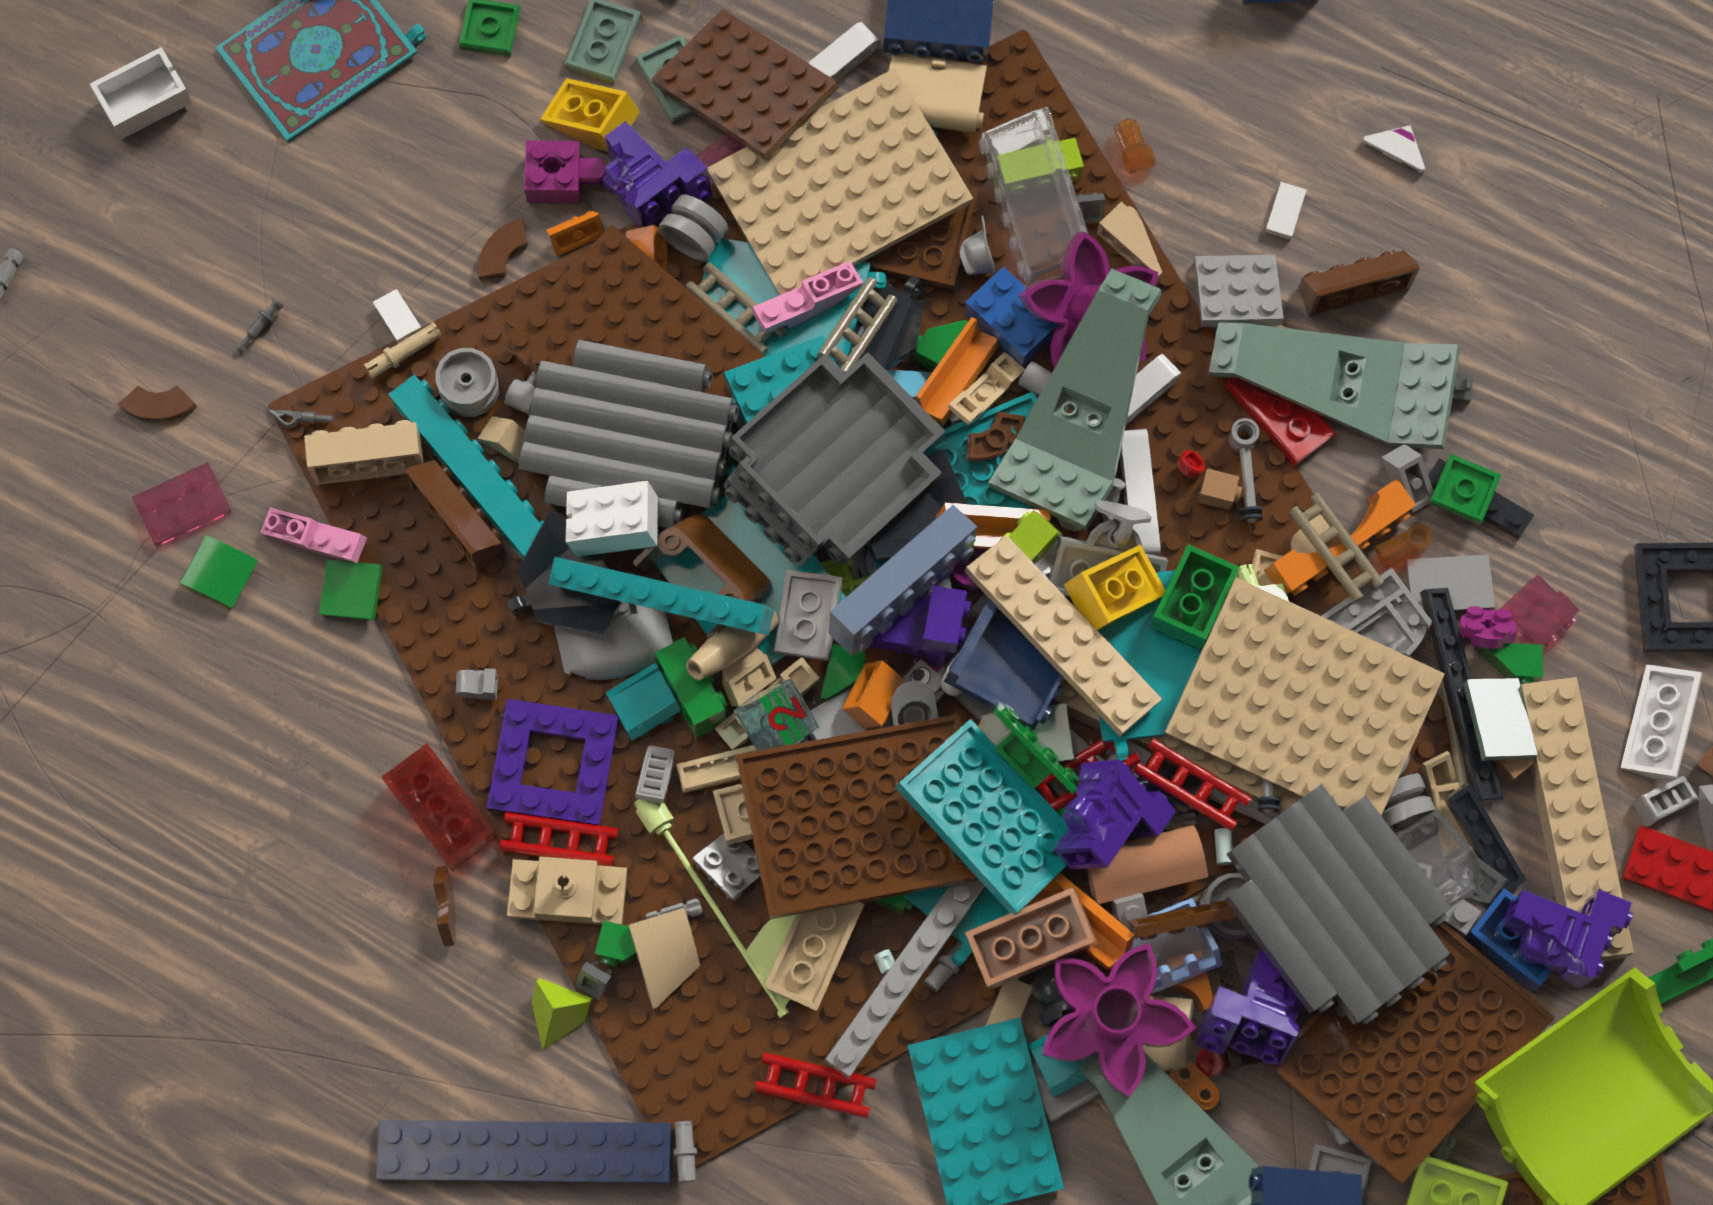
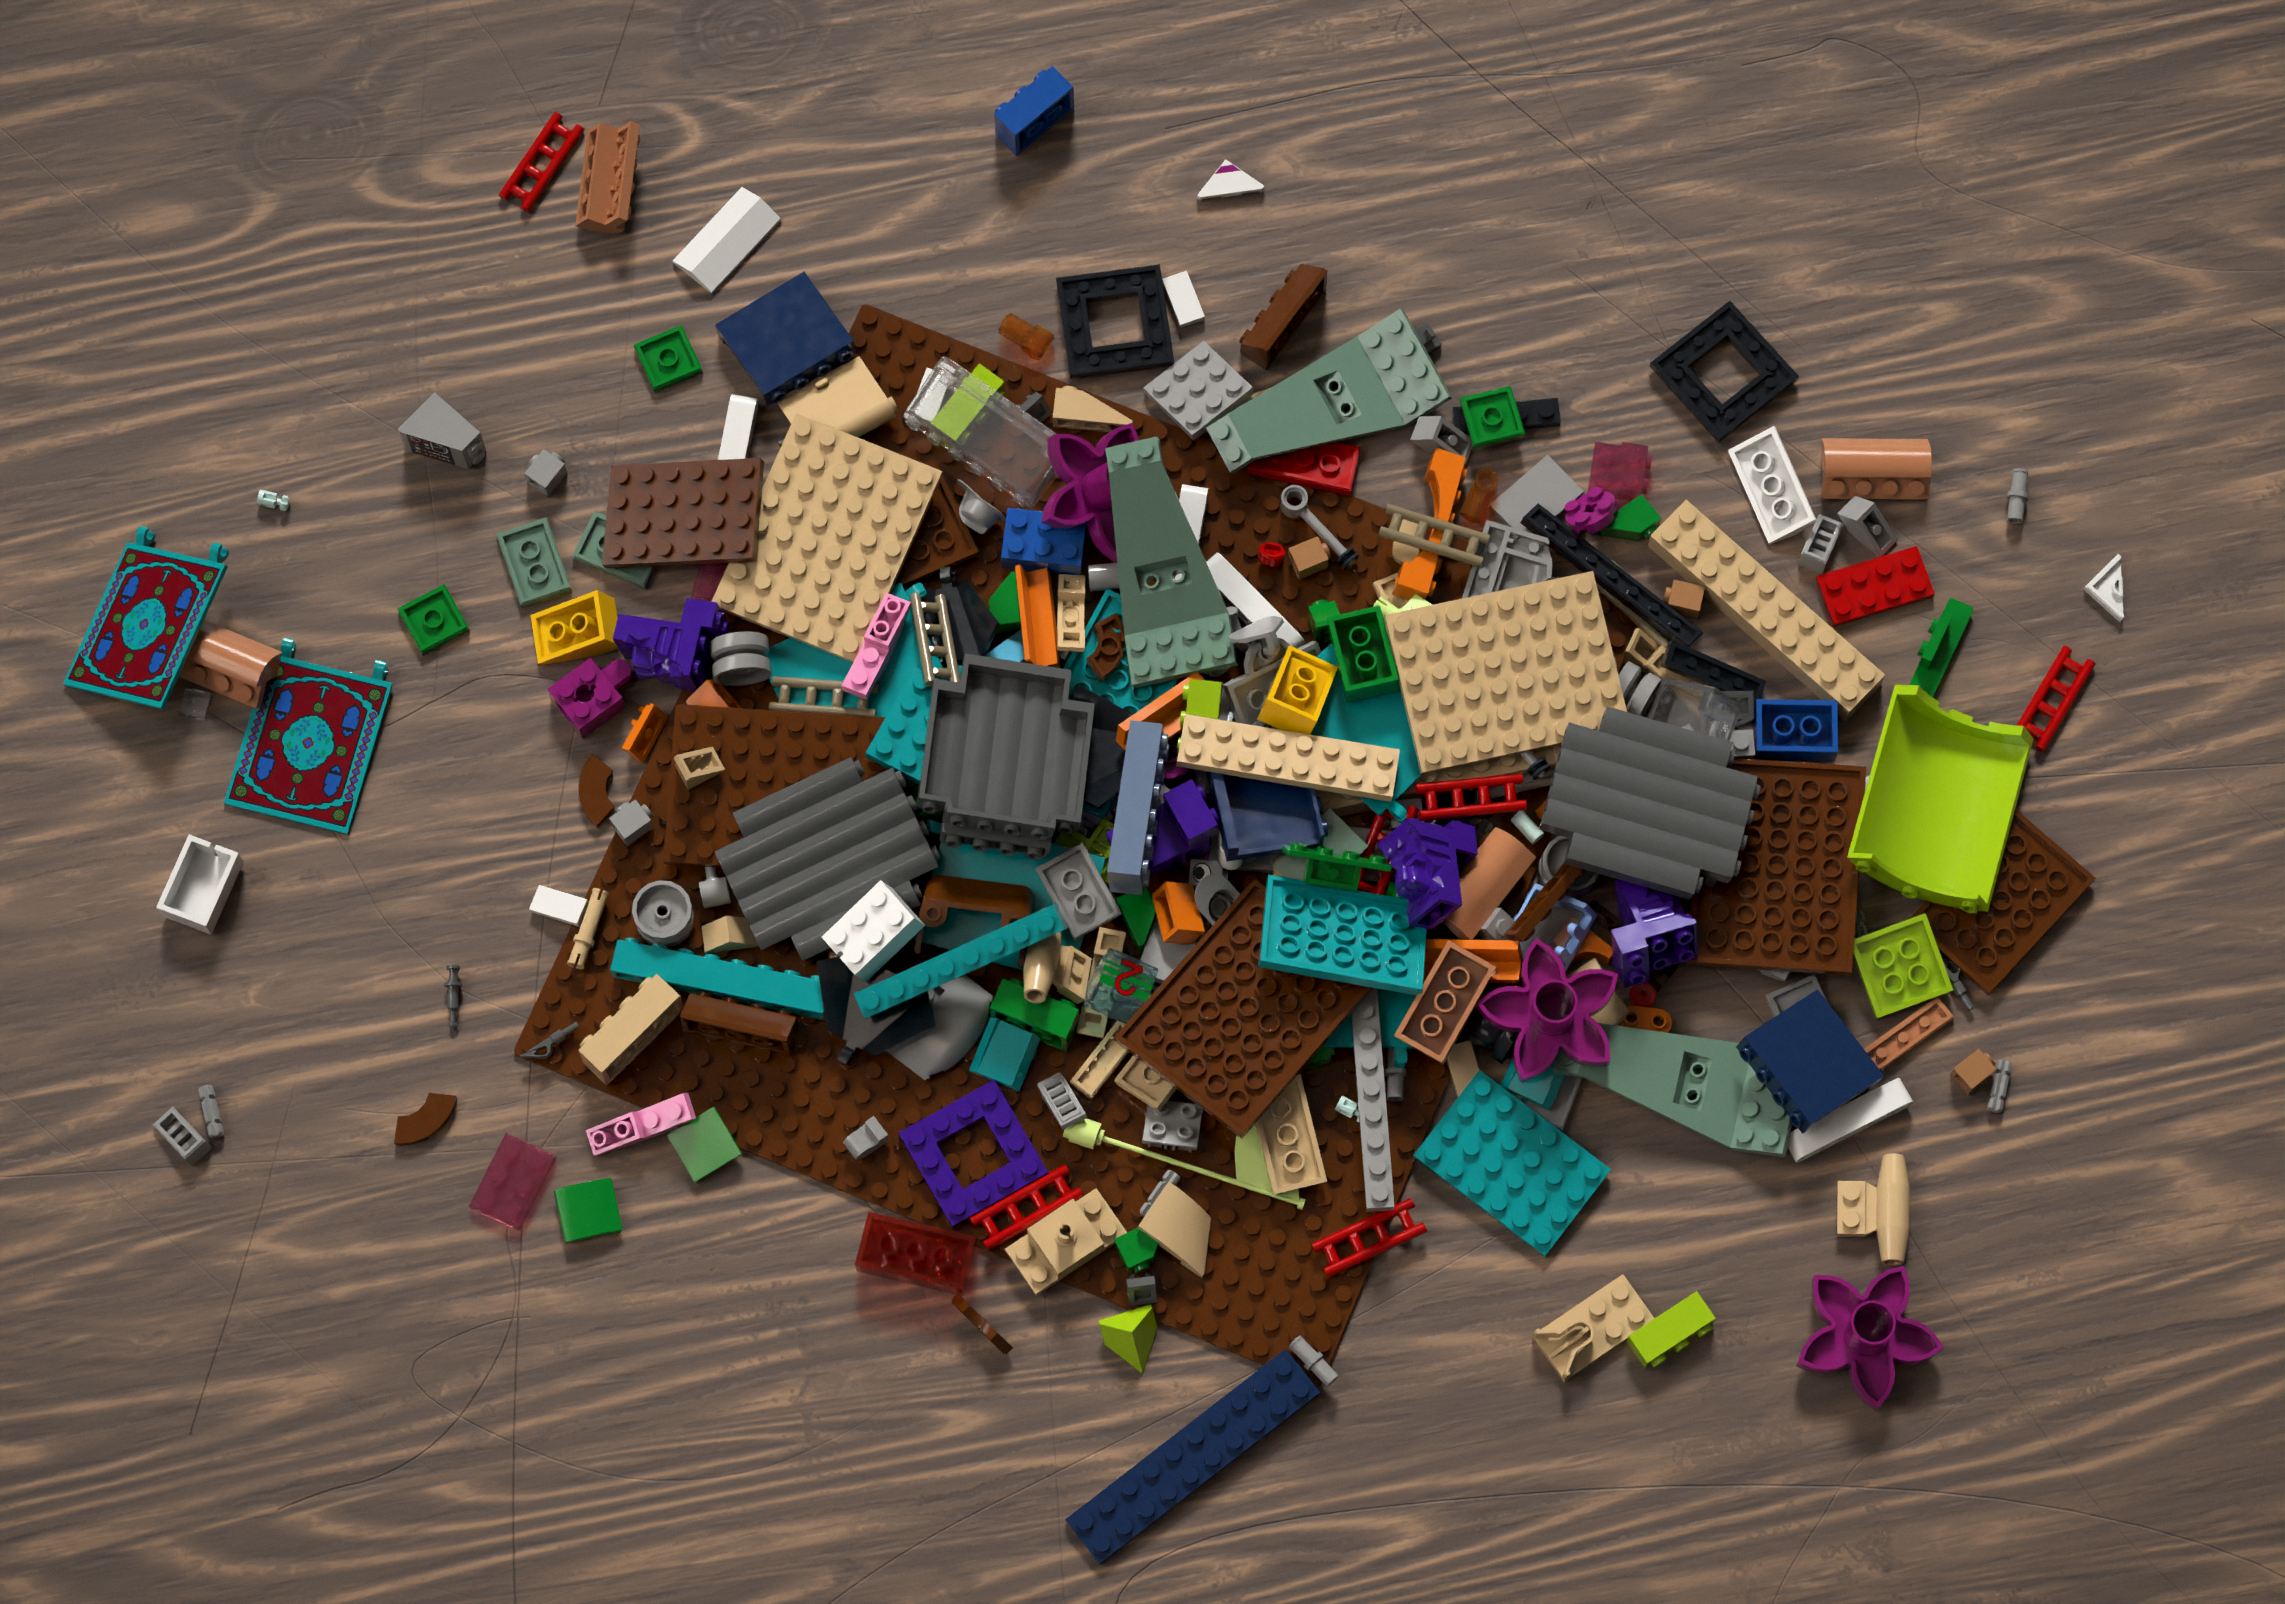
camera: 35 degrees left, 0 degrees up
(505, 292) = (631, 821): none -> light grey brick
(585, 284) = (698, 766): none -> tan slope
(1192, 537) = (1318, 619): none -> green slope
(1224, 233) = (1138, 281): none -> black plate
(1500, 719) = (1655, 574): tile -> none
(1566, 938) = (1829, 701): dark purple brick -> none

